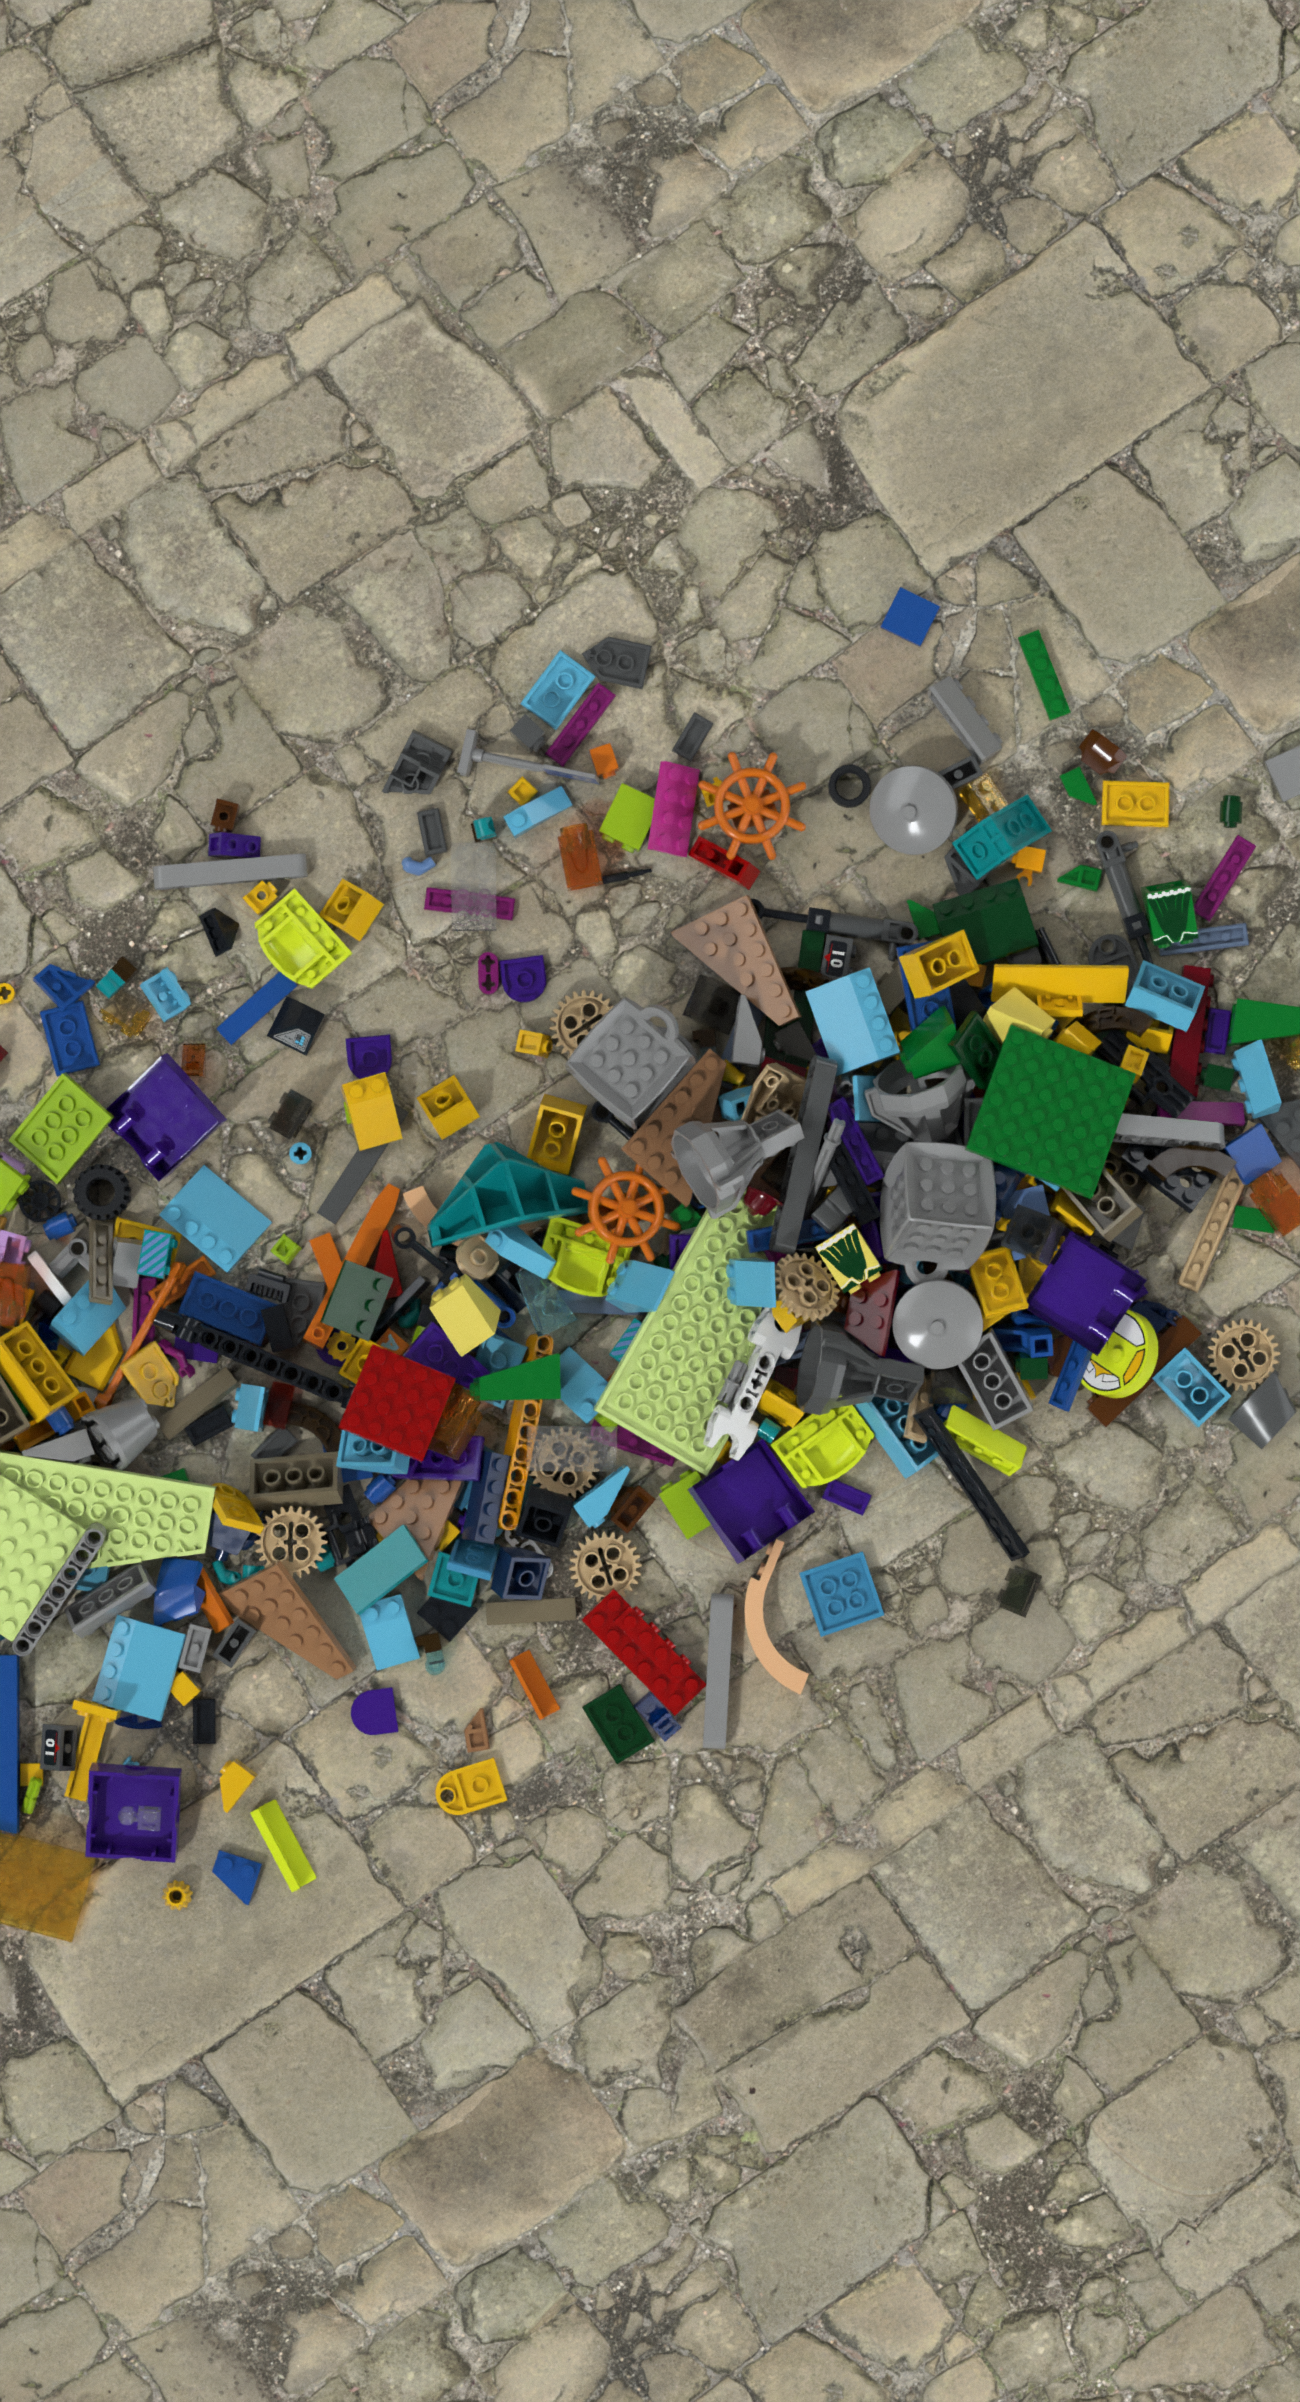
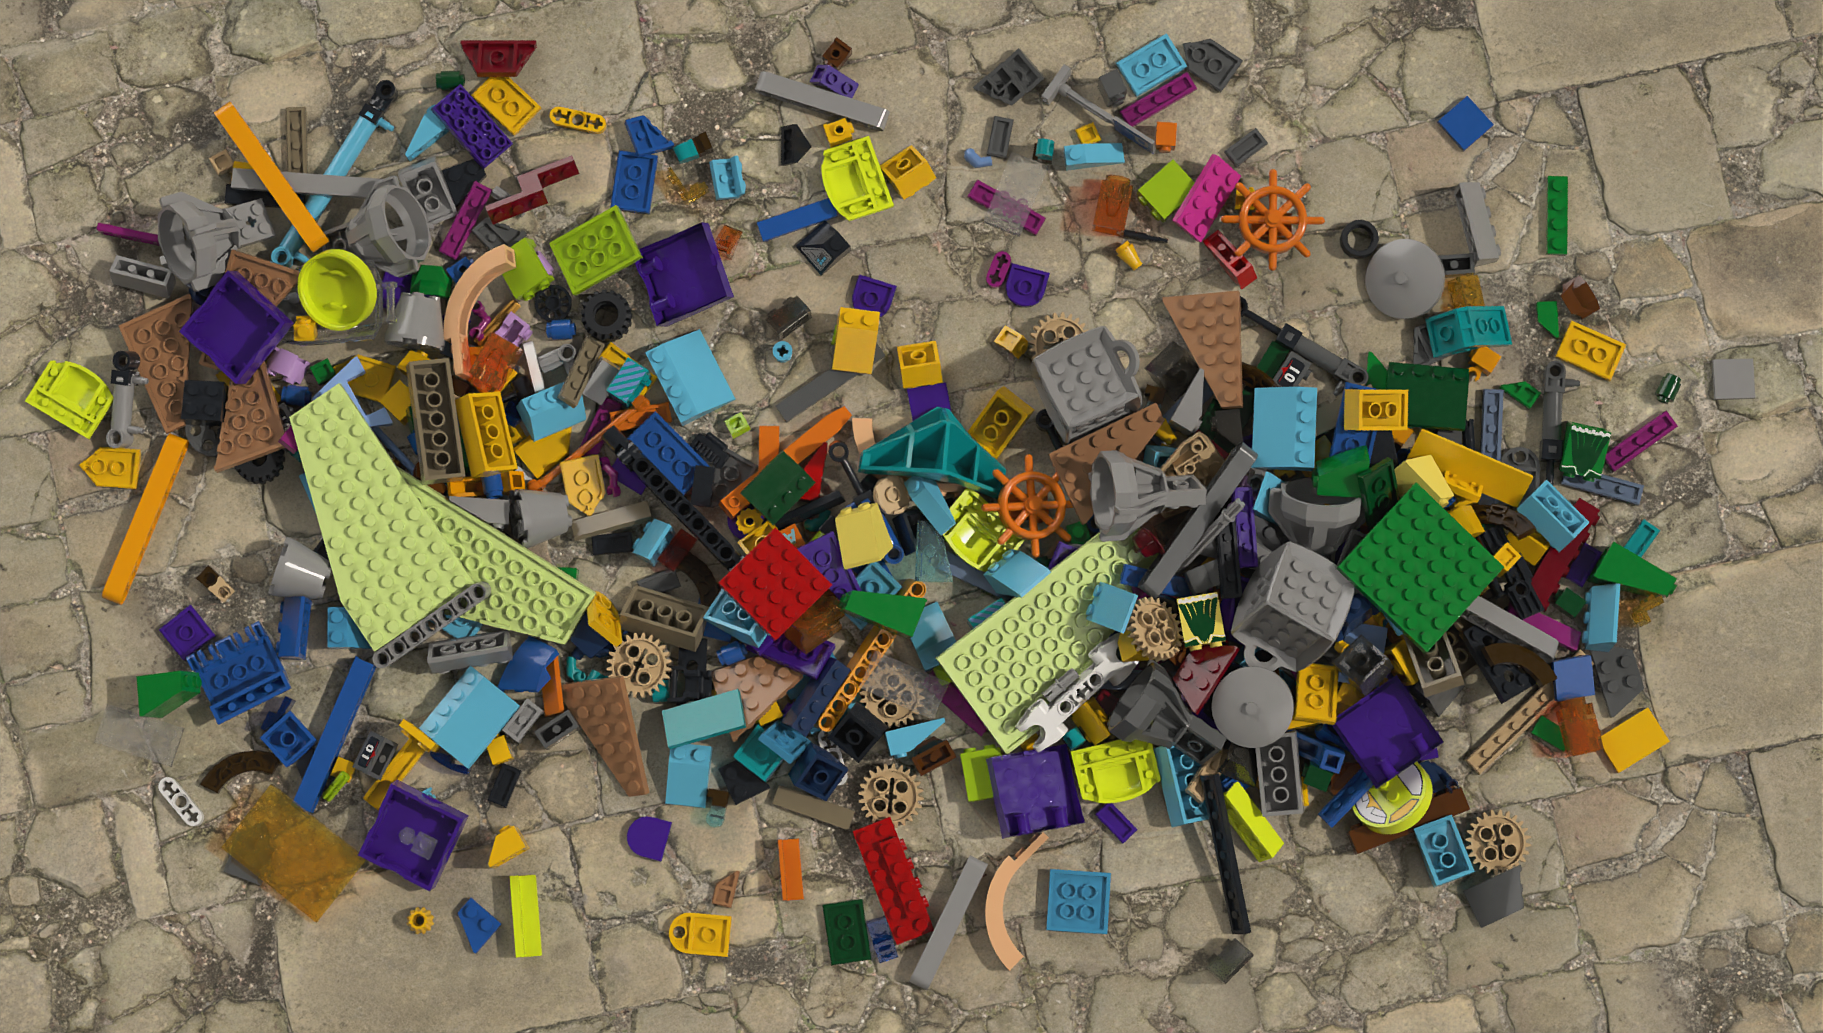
camera: 25 degrees right, 5 degrees down
(471, 1139) = (927, 398): none -> dark purple tile
(617, 901) = (1129, 255): none -> yellow cone
(1067, 932) = (1491, 431): none -> sand blue tile
(1265, 980) = (1642, 538): none -> teal tile

